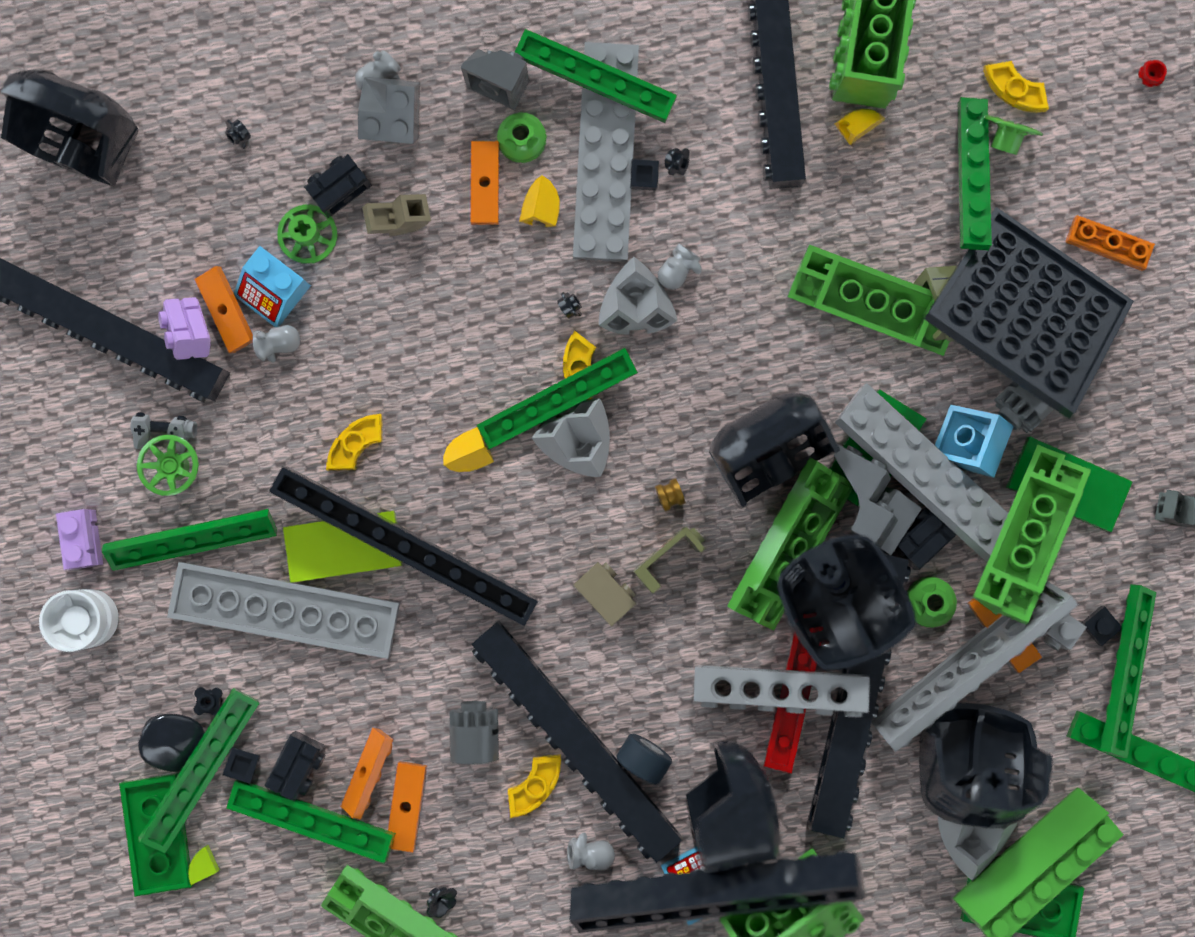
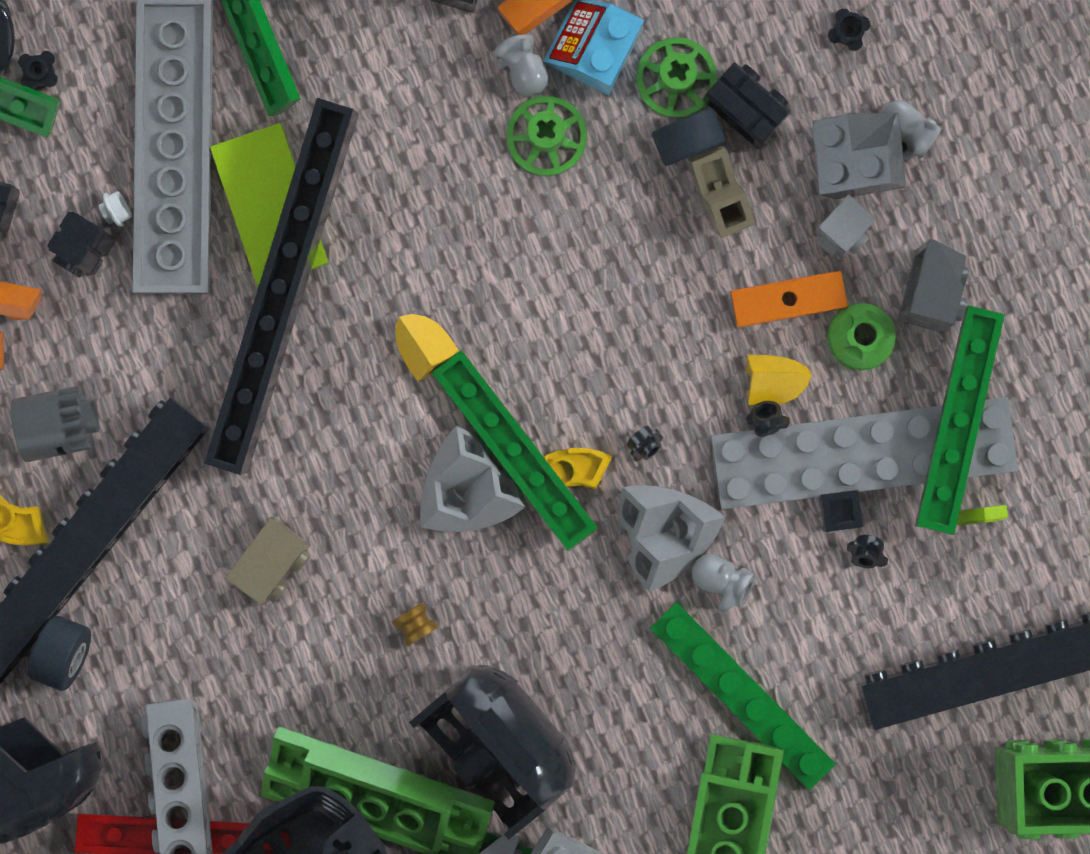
camera: 75 degrees right, 0 degrees up
(291, 98) = (849, 19): none -> black plate
(323, 661) = (115, 209): none -> white plate
(330, 335) = (546, 135): none -> bright green wheel
(344, 691) = (80, 245): none -> black brick
(352, 231) = (688, 136): none -> black wheel
(352, 442) = (411, 191): yellow tile -> none
(440, 132) = (845, 228): none -> light grey brick
(568, 213) = (767, 418): none -> black plate
(666, 74) = (982, 515): none -> lime tile
(693, 538) = (306, 604): olive panel -> none
(762, 271) = (742, 695): none -> green plate
(858, 124) = (969, 789): yellow brick -> none

